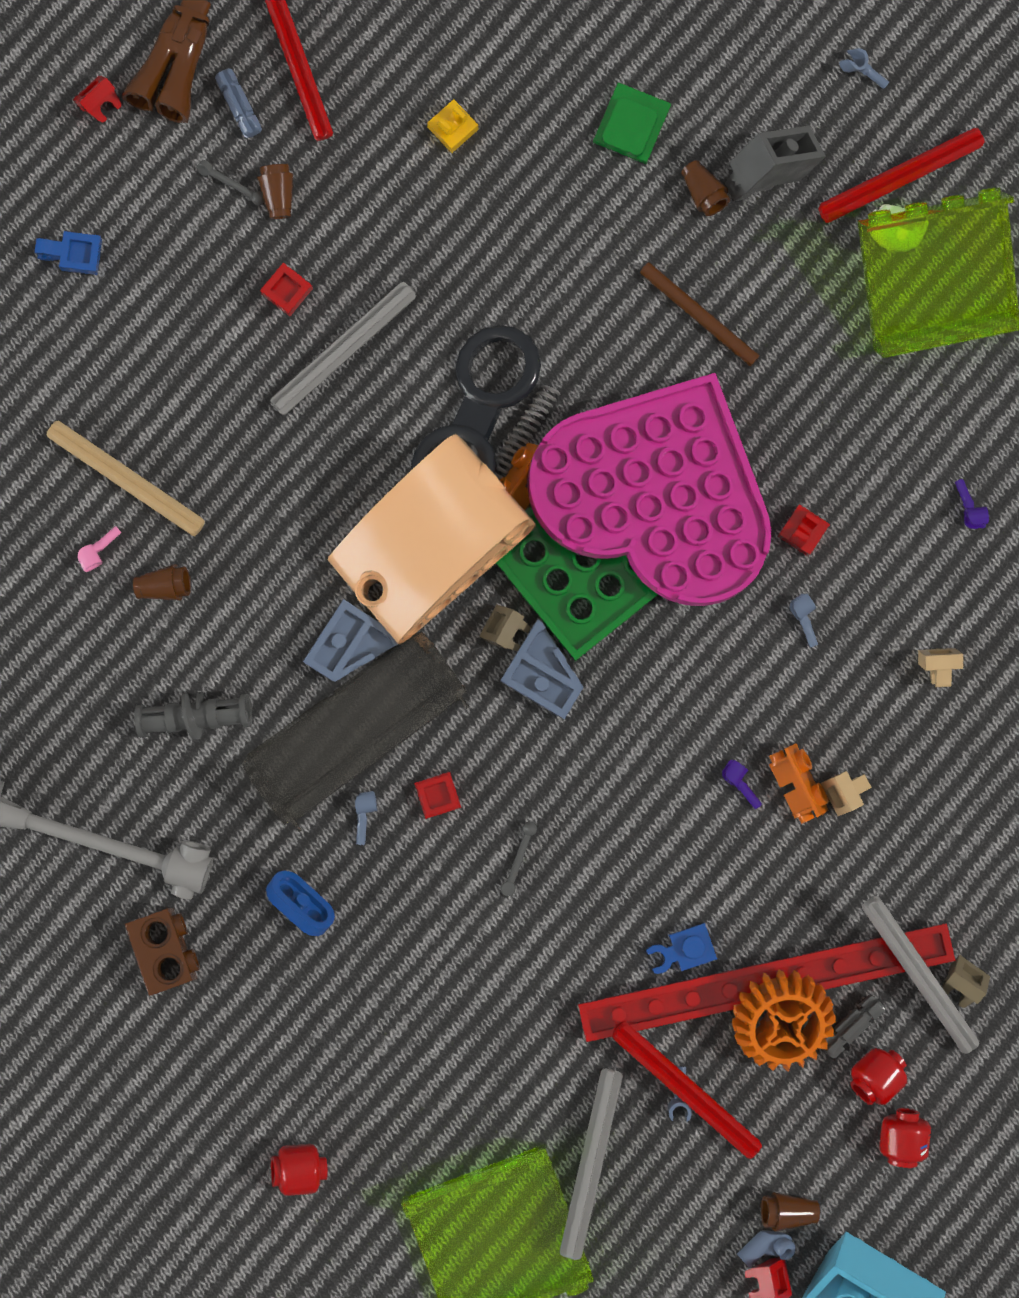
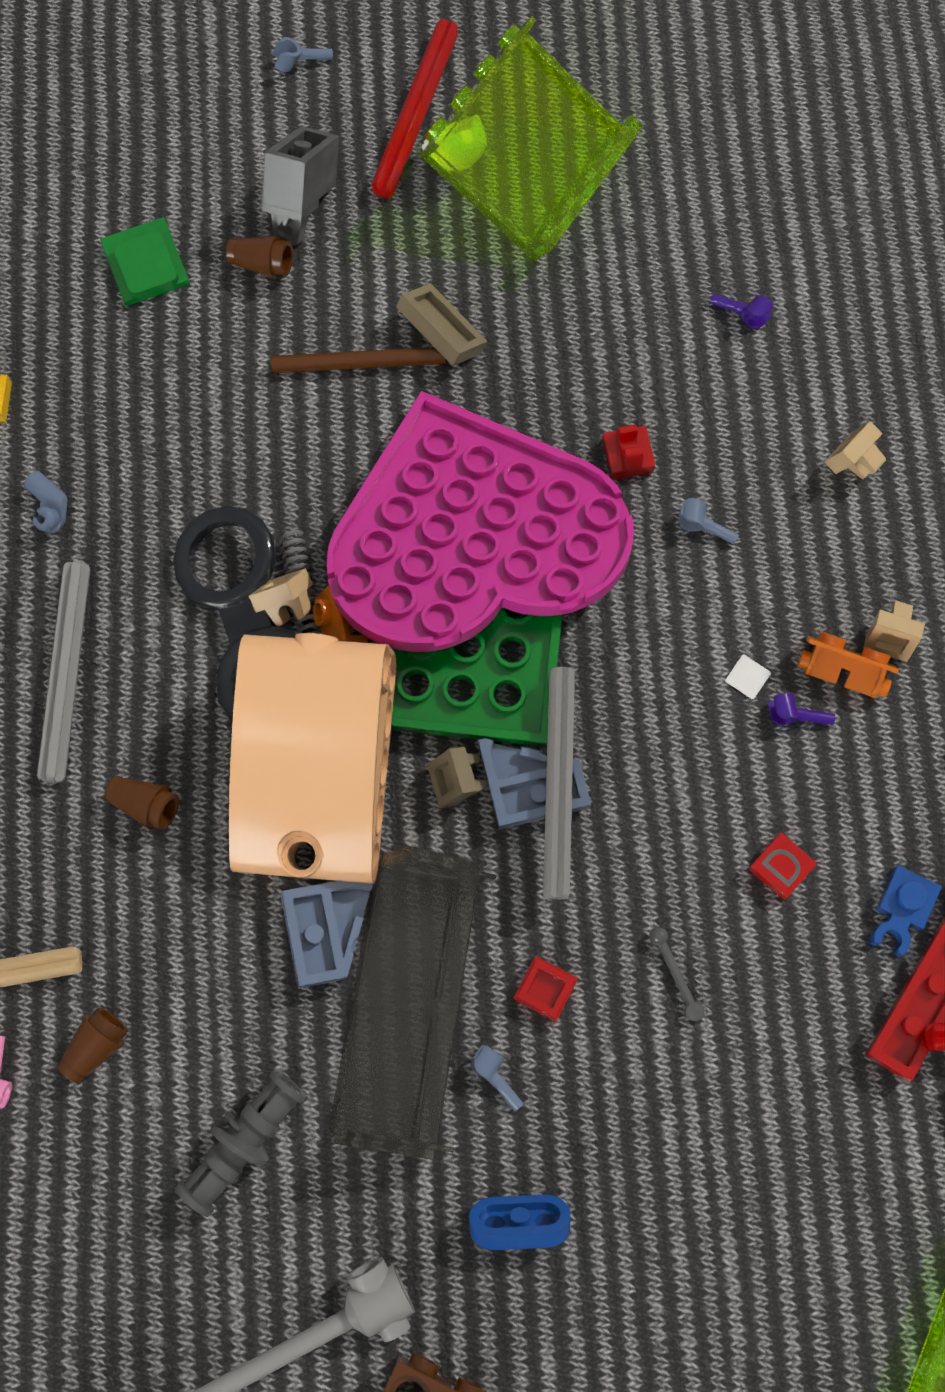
camera: 45 degrees left, 10 degrees down
(316, 472) = (144, 801): none -> reddish brown cone
(430, 235) = (52, 502): none -> sand blue arm
(509, 424) = (282, 592): none -> tan tile
(557, 688) = (559, 783): none -> light grey axle
(639, 859) = (782, 866): none -> red tile
(735, 733) = (748, 676): none -> white sticker
(771, 340) = (441, 324): none -> dark tan tile

